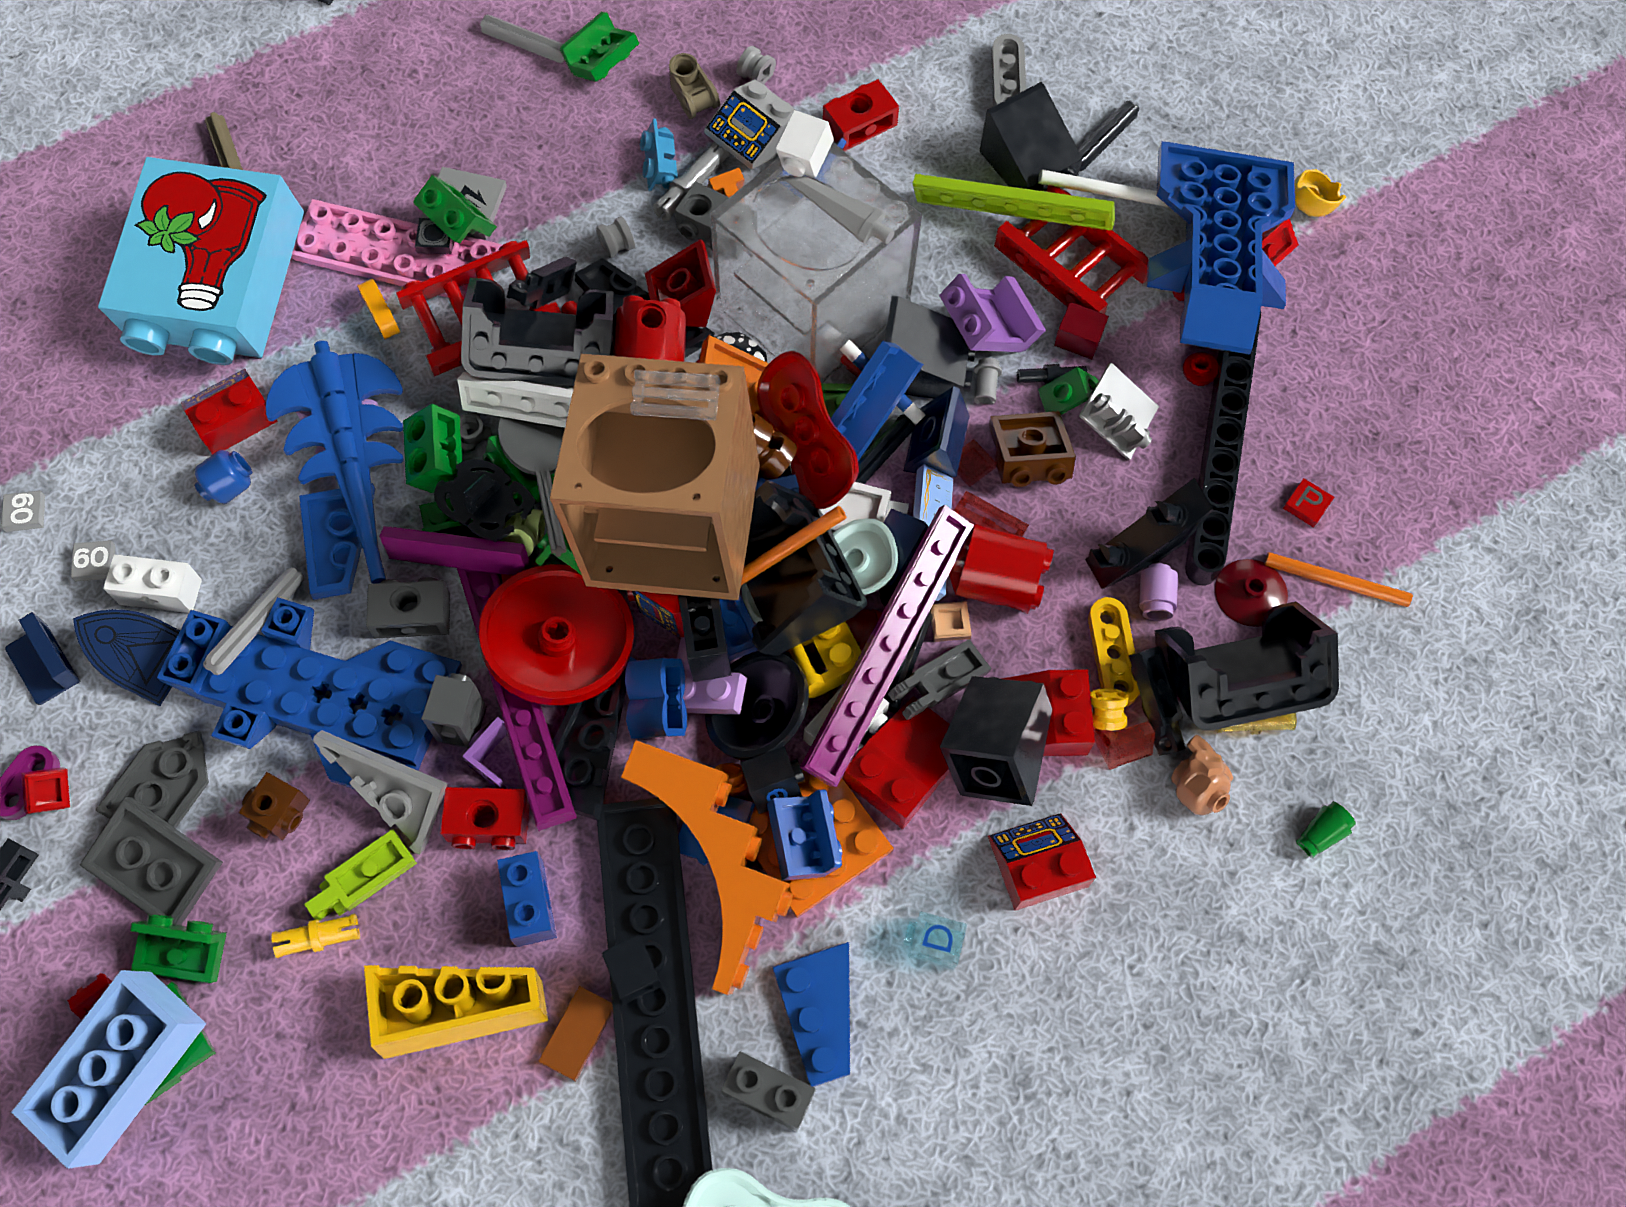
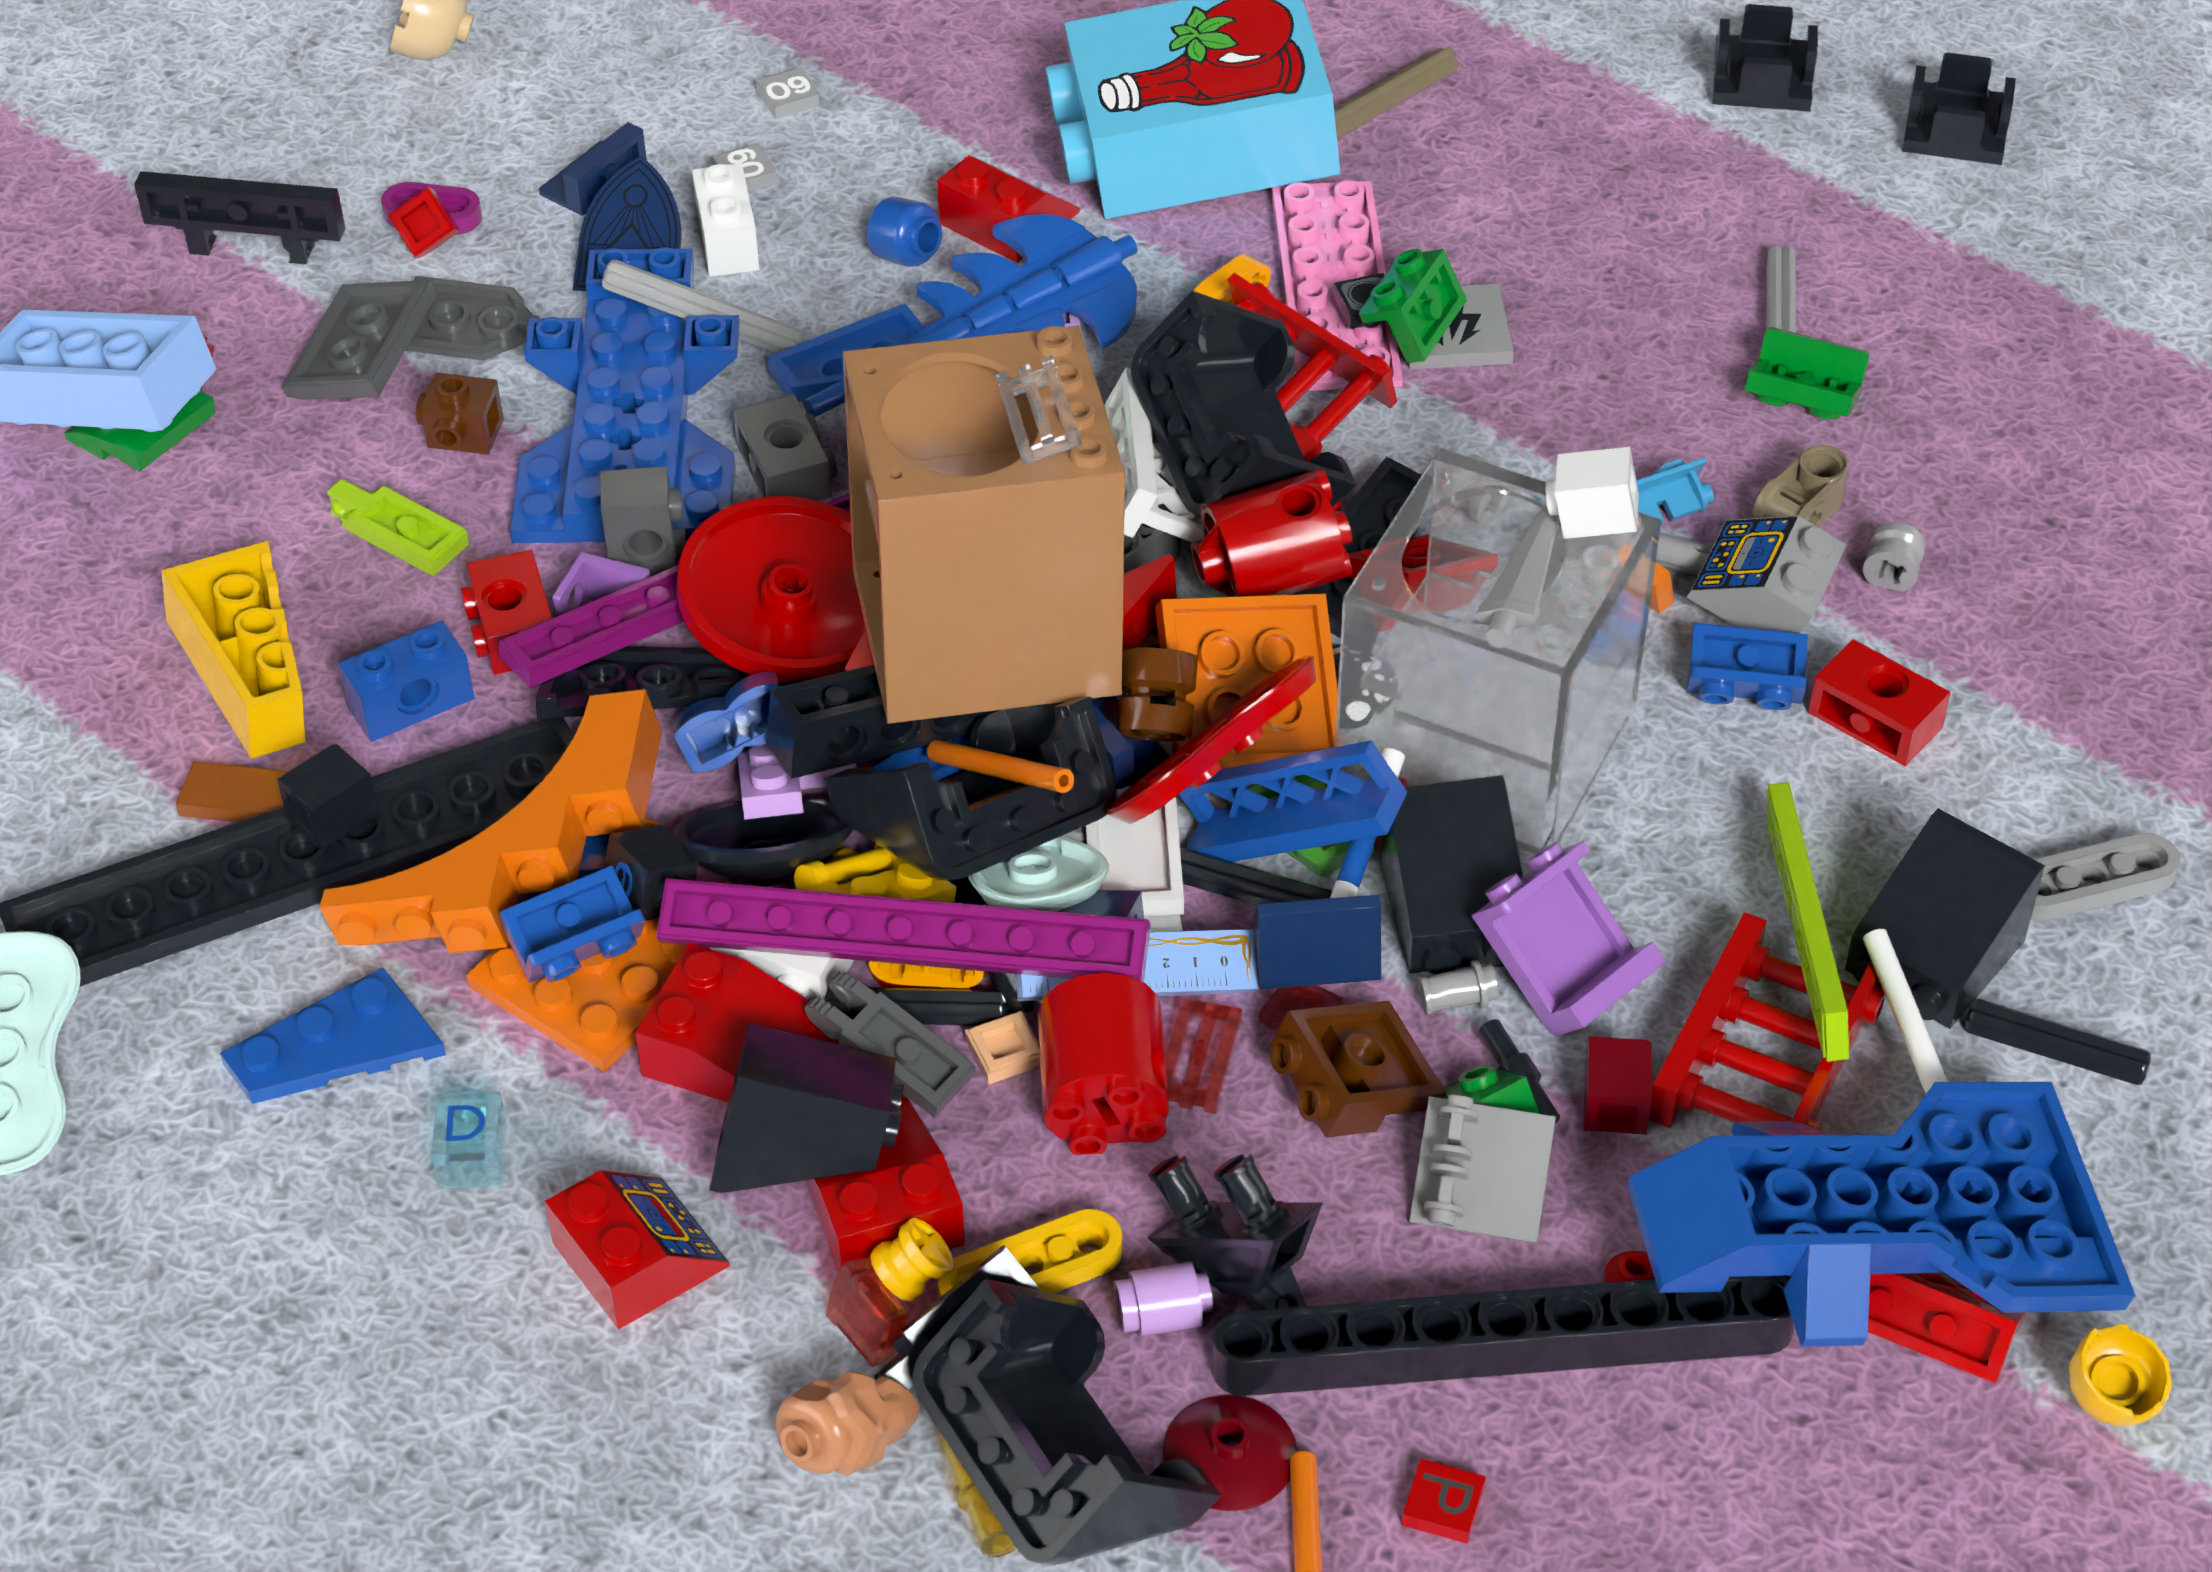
camera: 75 degrees right, 20 degrees down
(178, 950) = (257, 393): green bracket -> none
(315, 935) = (308, 509): yellow pin -> none
(397, 791) = (516, 499): light grey wing -> none
(544, 283) = (1336, 418): black hinge -> none
(768, 1091) = (198, 999): dark grey brick -> none

